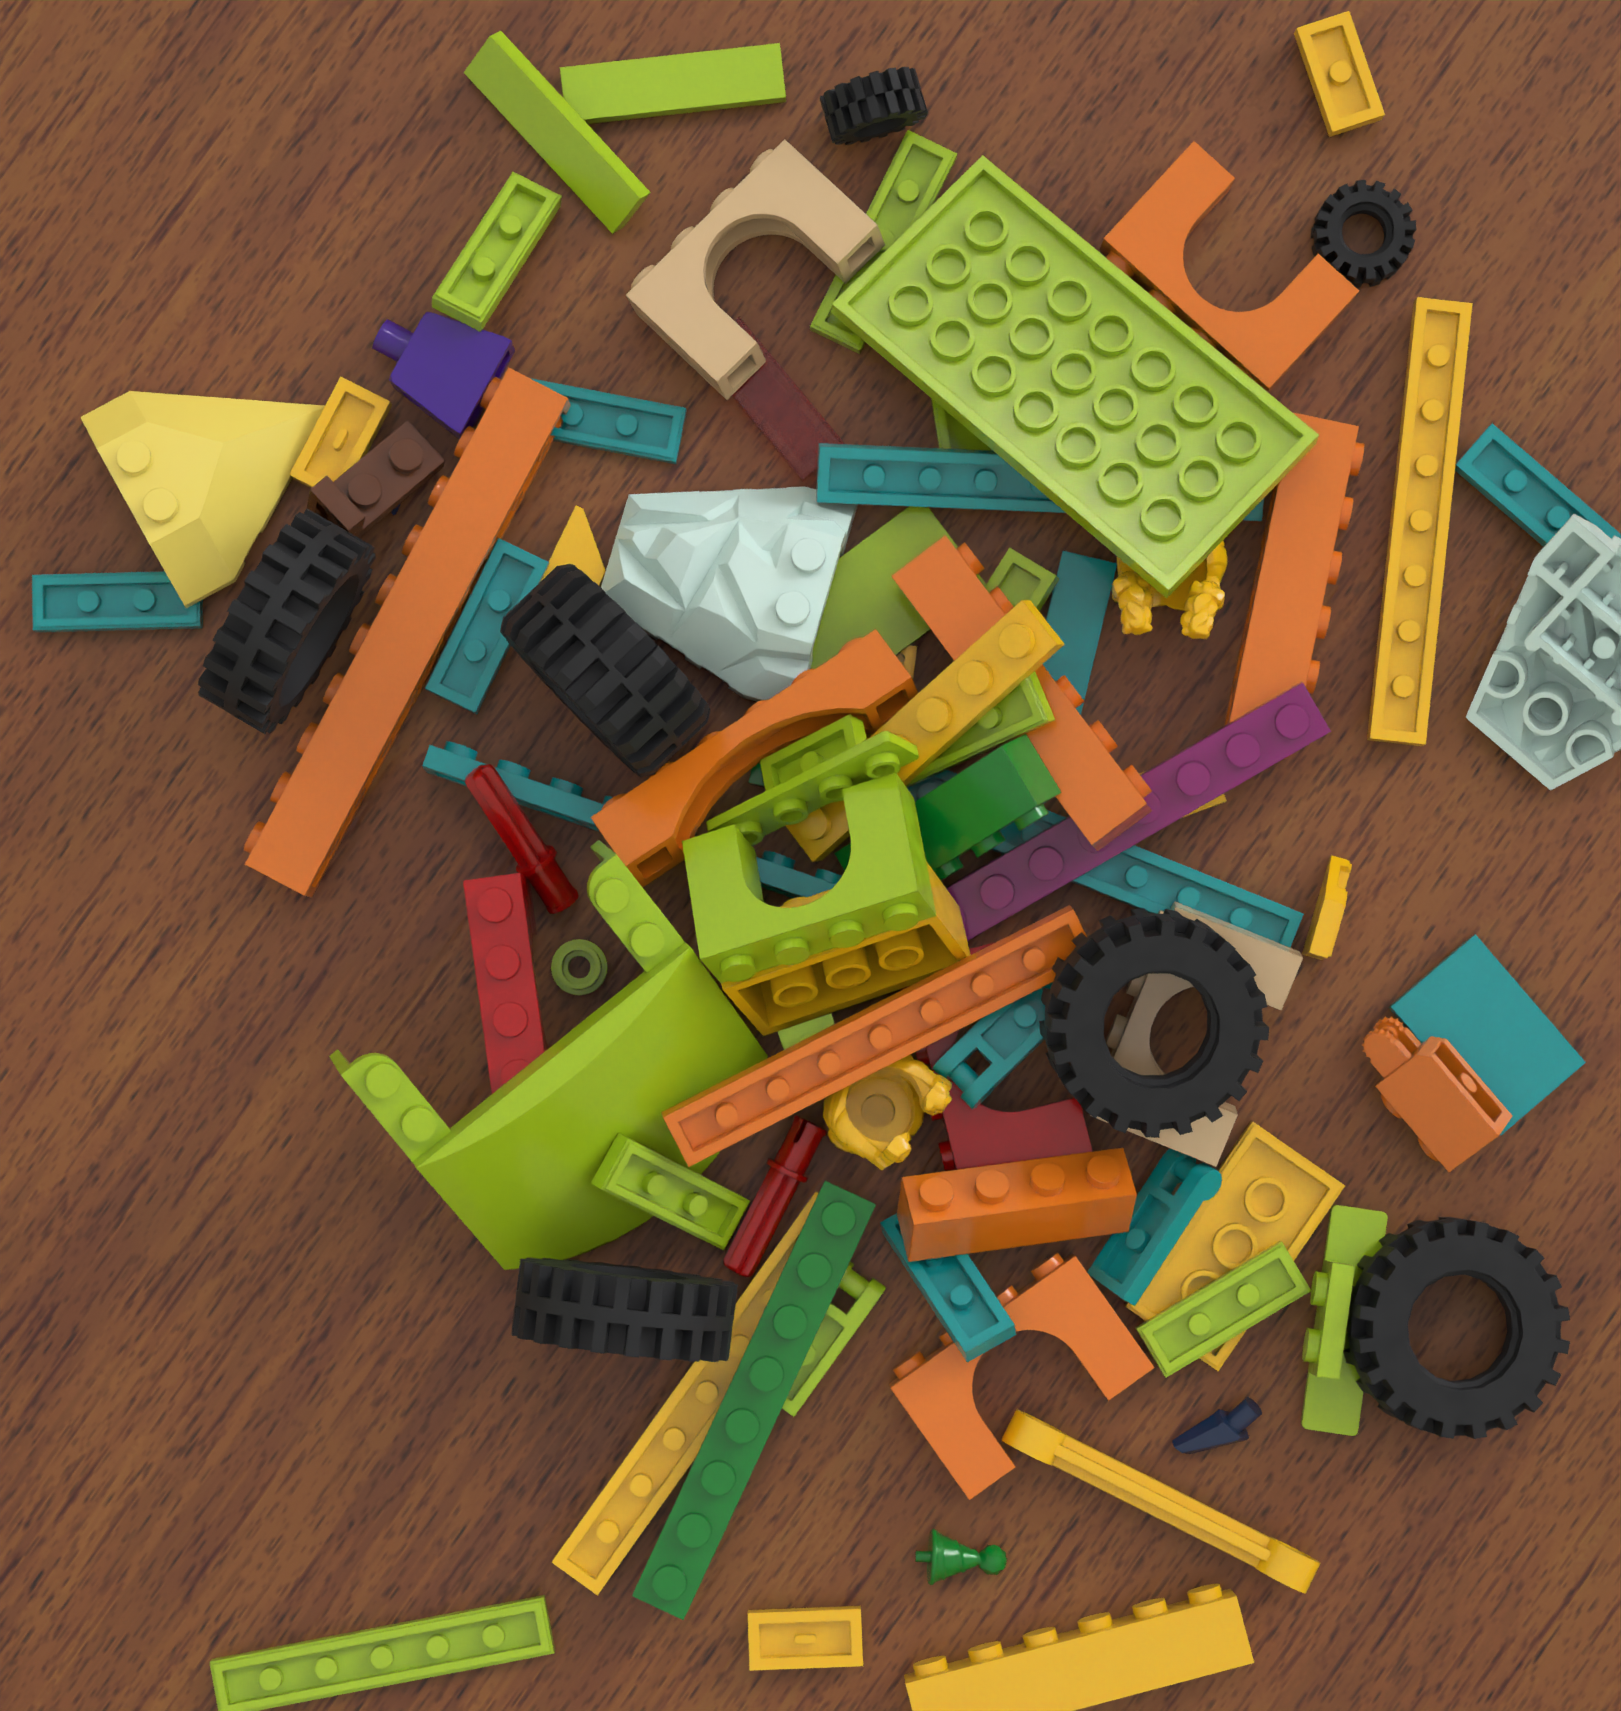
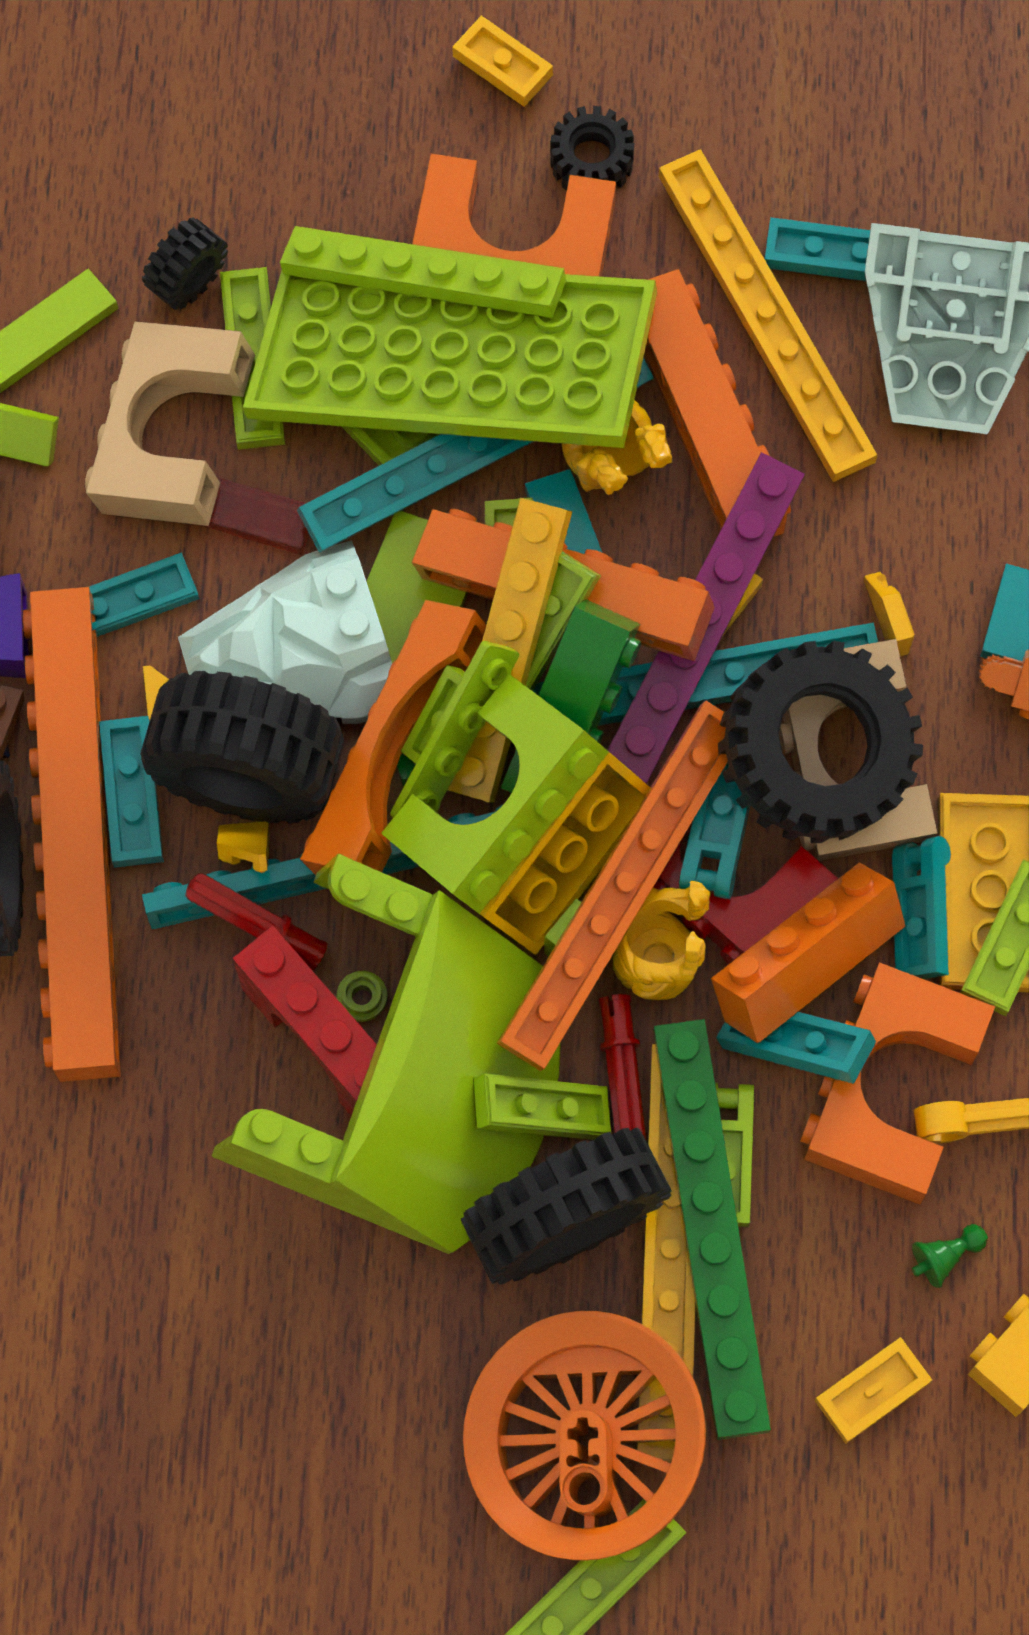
camera: 30 degrees left, 15 degrees down
(559, 752) = (246, 843): none -> yellow tile
(570, 1439) = (584, 1347): none -> orange piece
(1100, 270) = (423, 271): none -> lime plate

